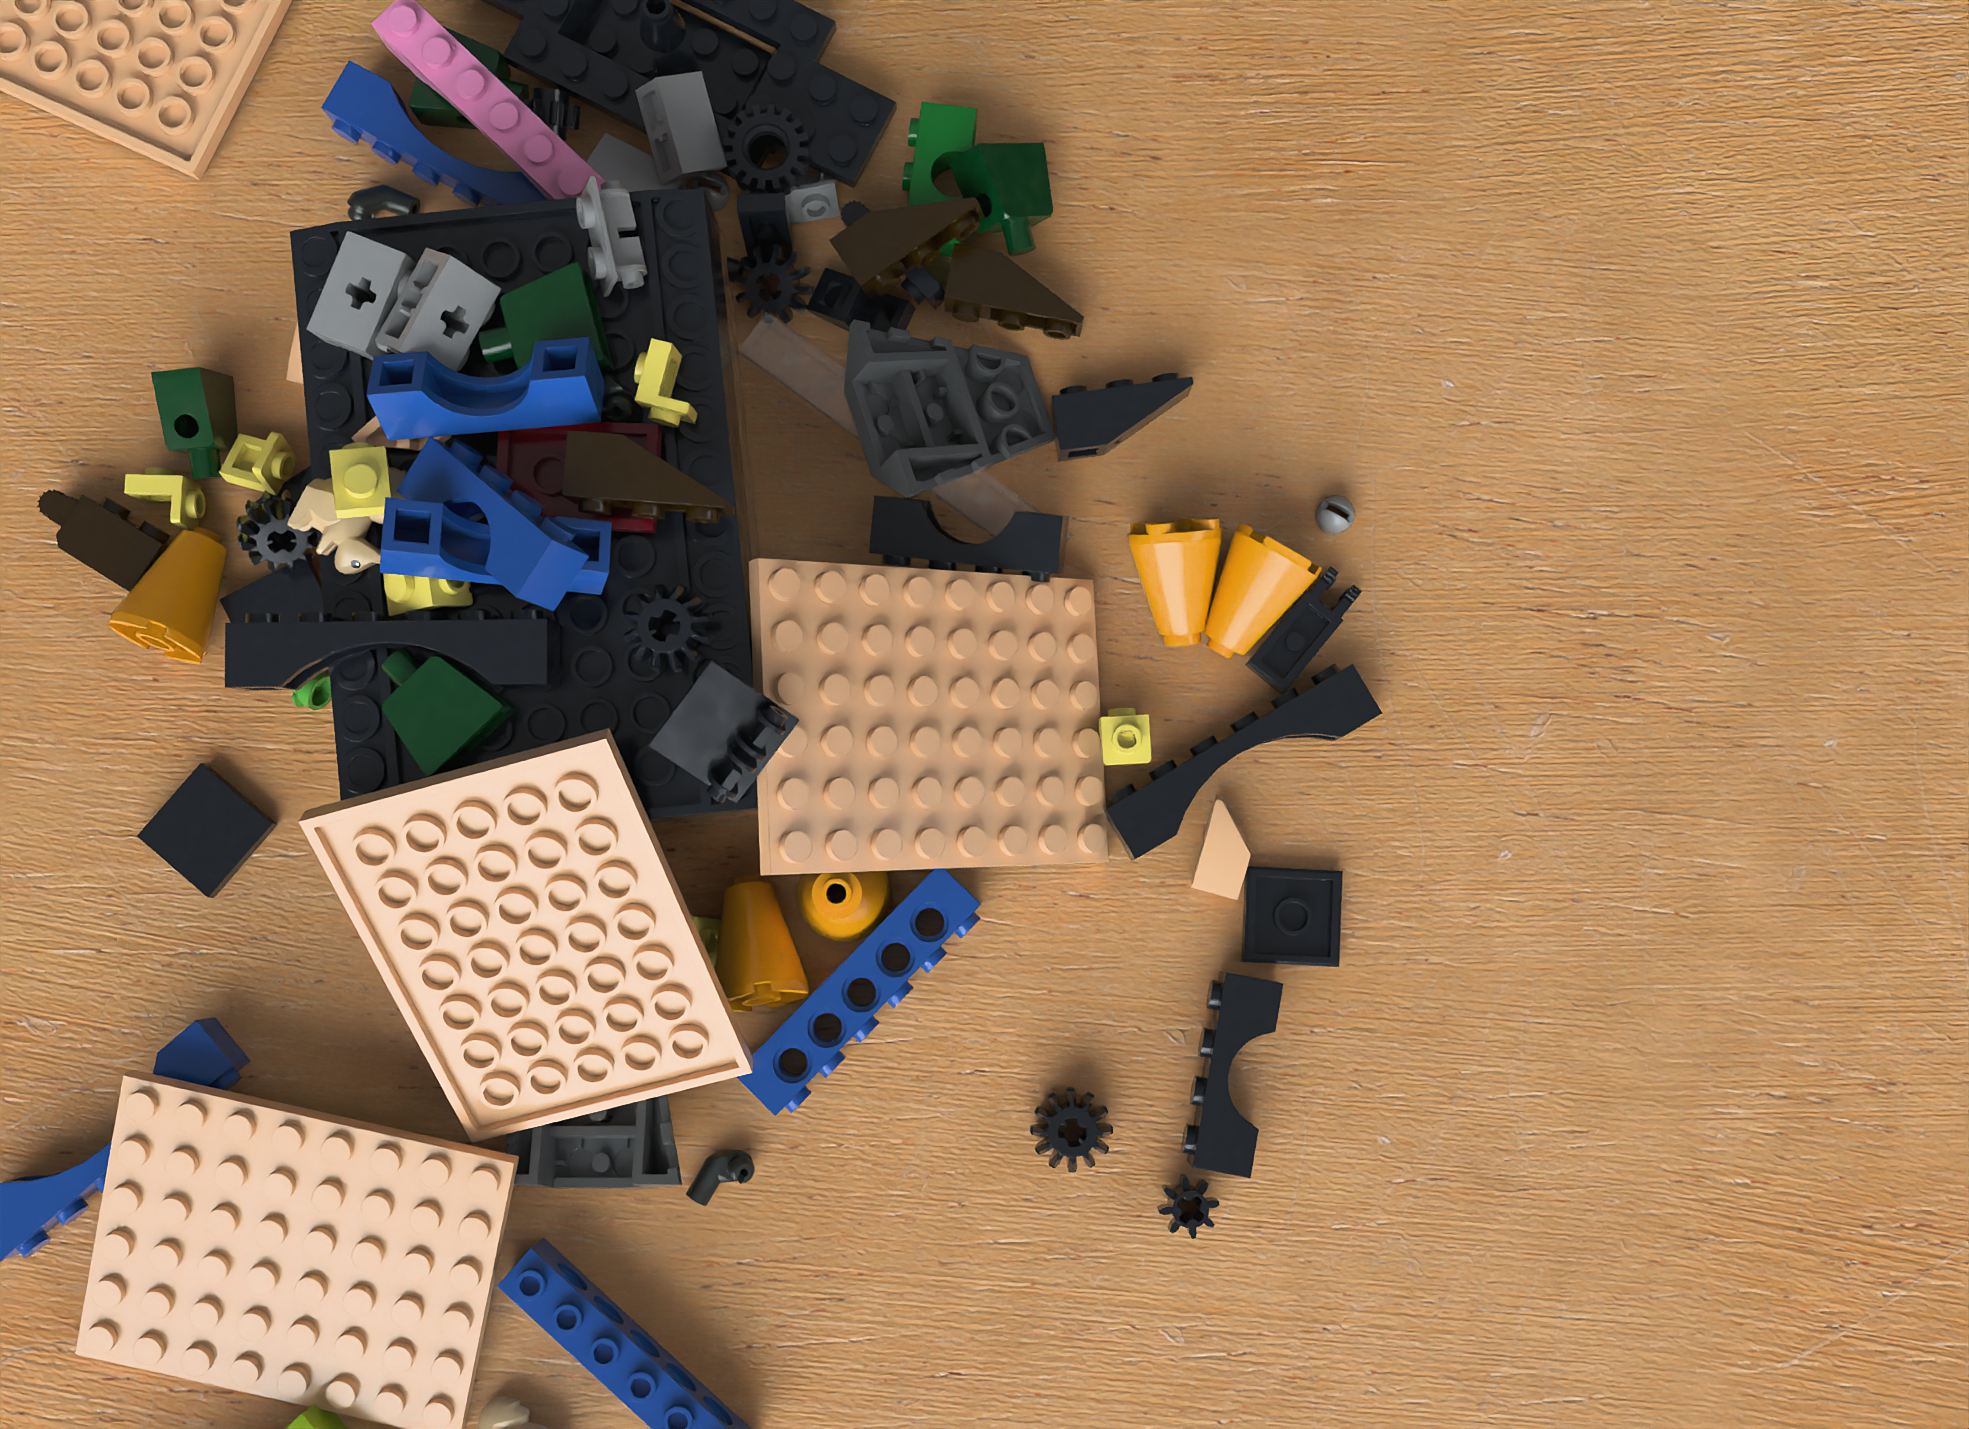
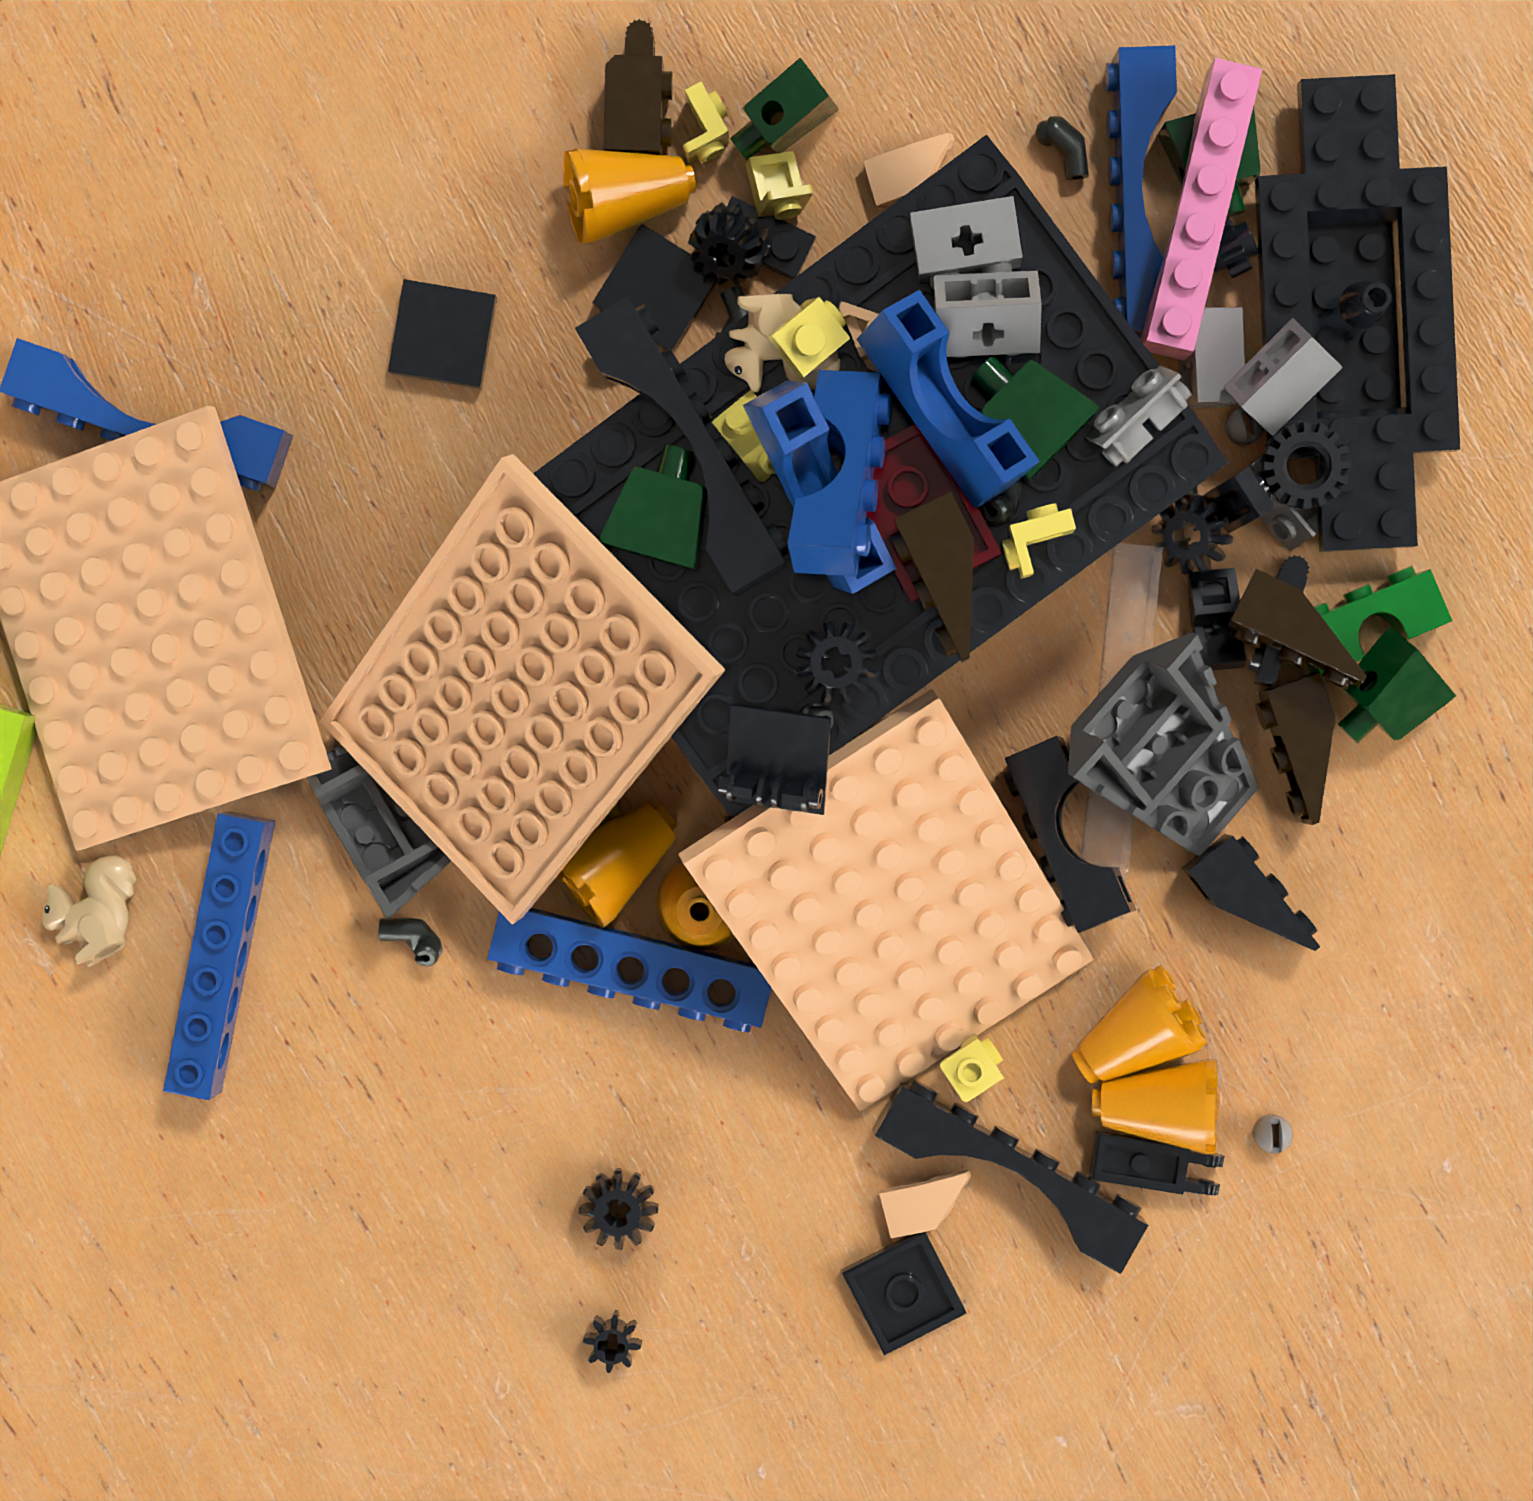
camera: 65 degrees right, 5 degrees up
(1220, 1135) = (797, 1295): black arch -> none

